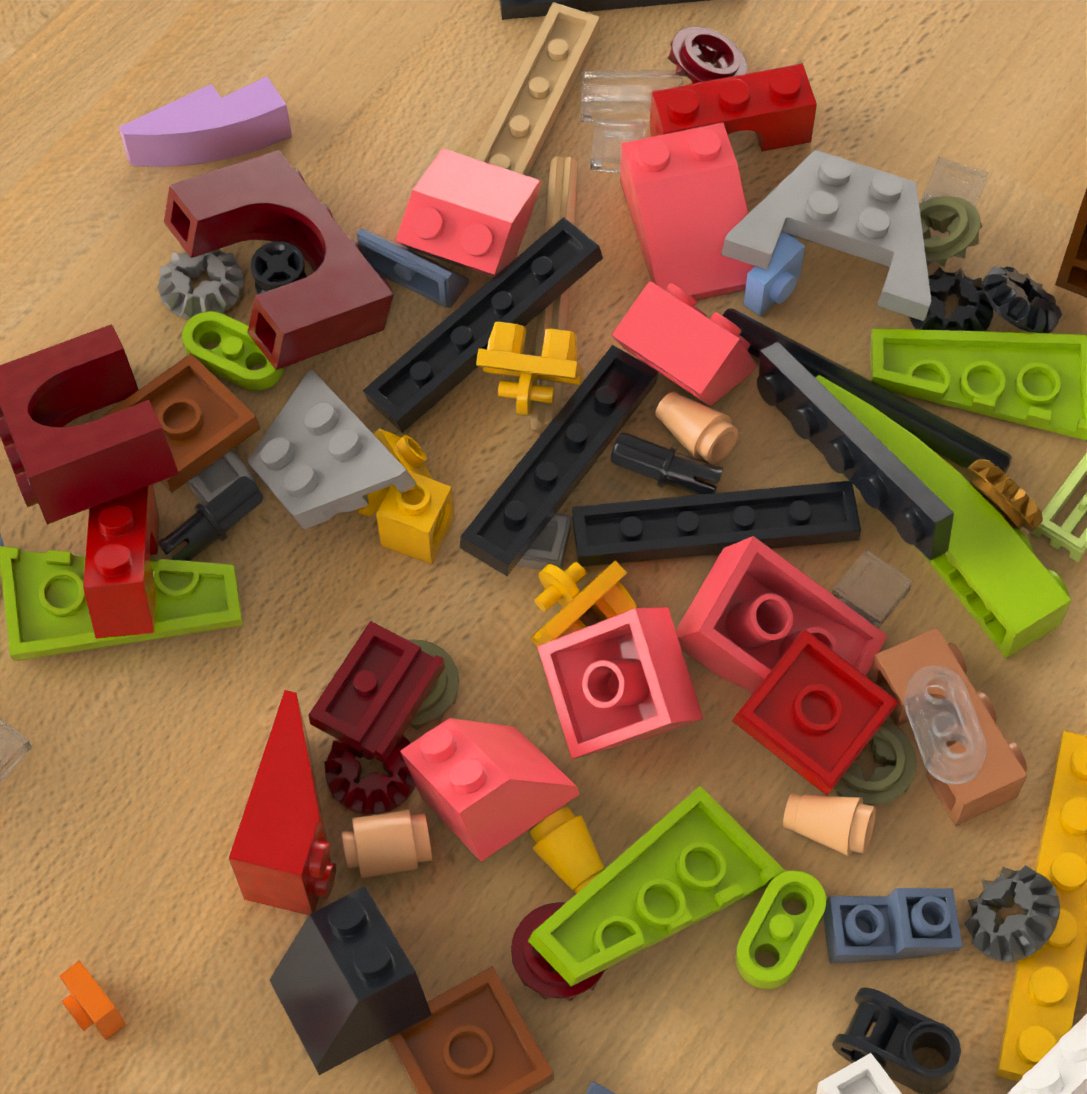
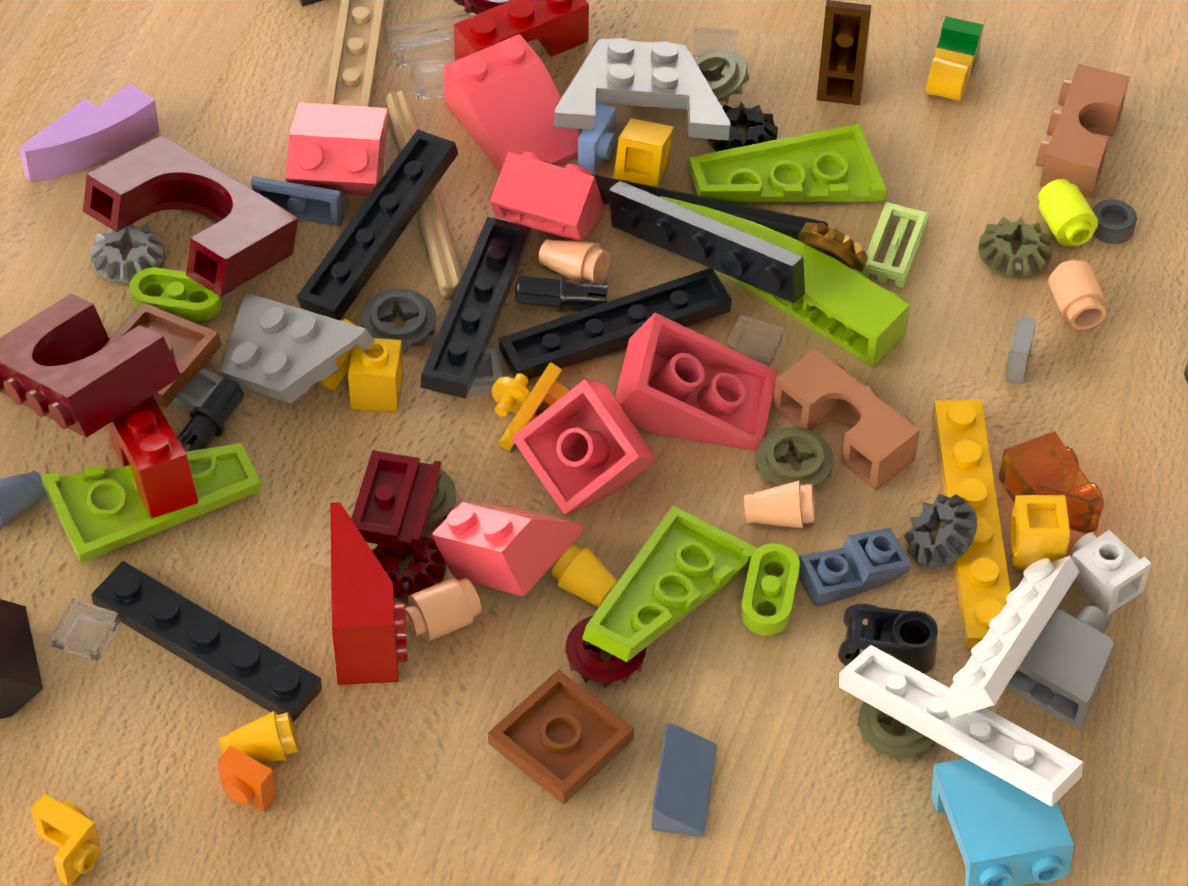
camera: 20 degrees left, 10 degrees down
(116, 804) = (207, 641): none -> black plate
(128, 954) = (264, 739): none -> yellow cone
(278, 262) = (188, 221): black wheel -> none
(347, 982) = (450, 705): black slope -> none
(454, 432) = (412, 307): none -> dark grey gear
(506, 358) = (433, 247): yellow hips -> none
(815, 712) = (743, 429): red tile -> none
(820, 309) = (643, 152): none -> yellow brick
(942, 721) = (842, 406): clear plate -> none
(1021, 300) = (796, 112): black gear -> none

